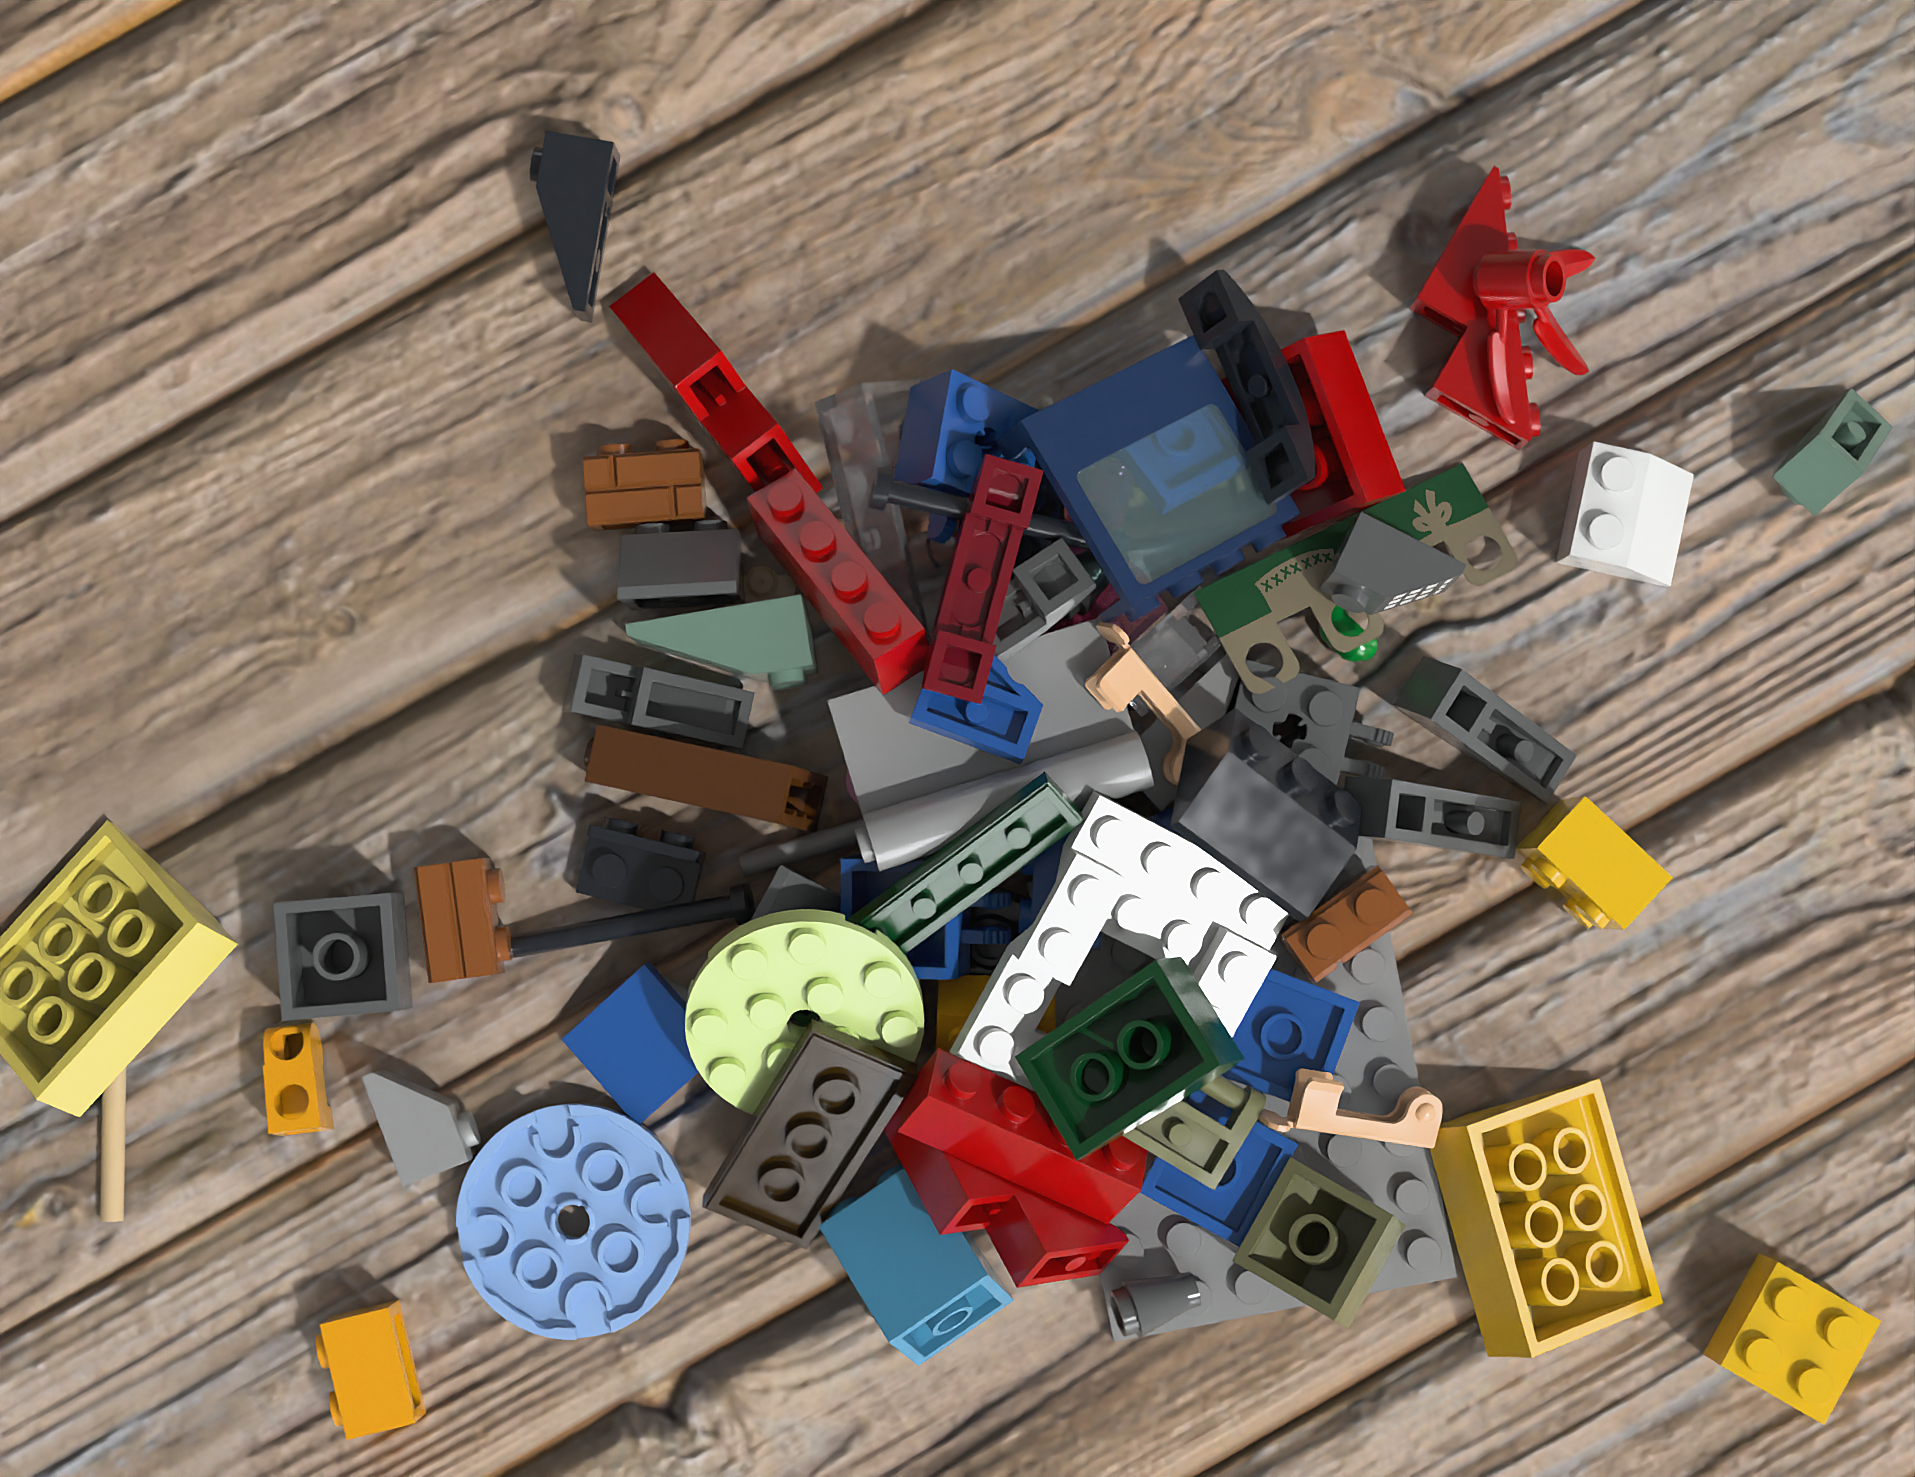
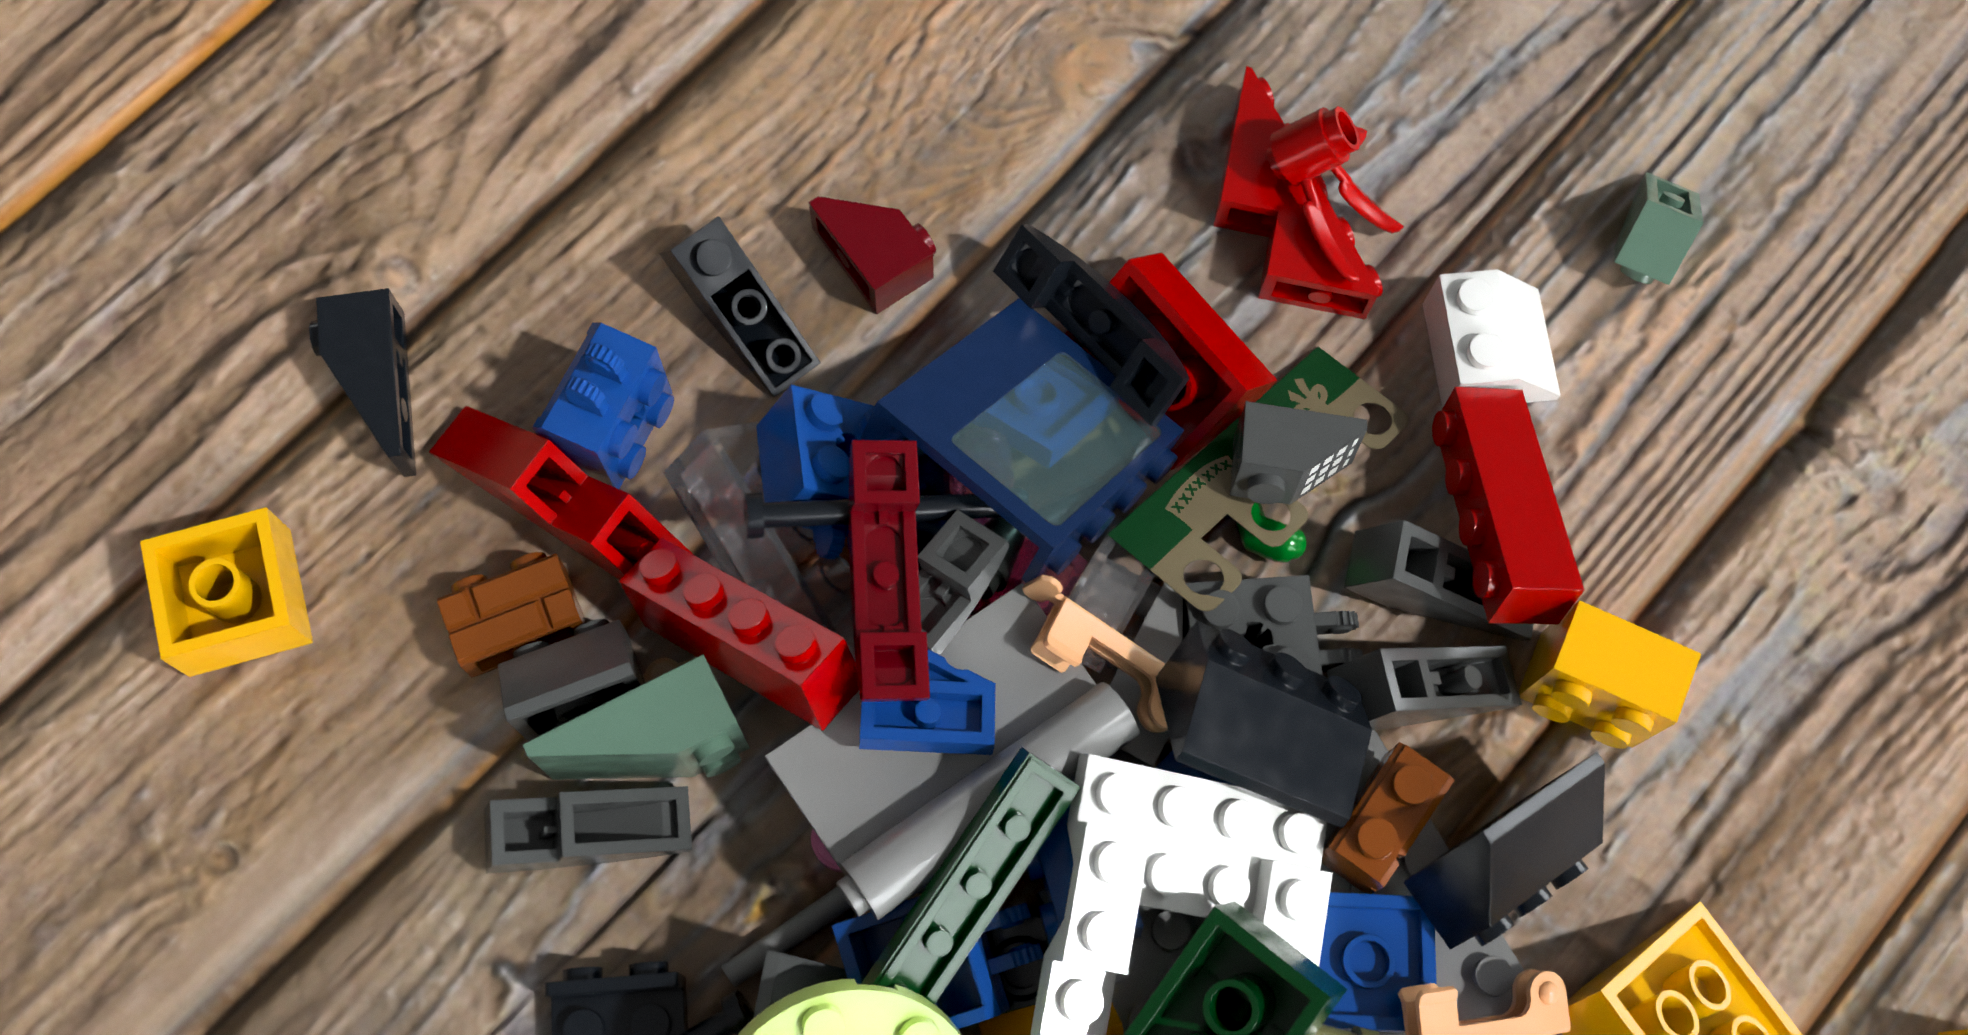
camera: 25 degrees left, 15 degrees down
(401, 390) = (225, 592): none -> yellow brick
(705, 777) = (661, 891): reddish brown slope -> none
(781, 325) = (608, 405): none -> blue hinge
(932, 253) = (740, 305): none -> black slope
(1076, 237) = (875, 248): none -> dark red slope
(1441, 993) = (1514, 858): none -> black slope
(1564, 680) = (1506, 507): none -> red brick

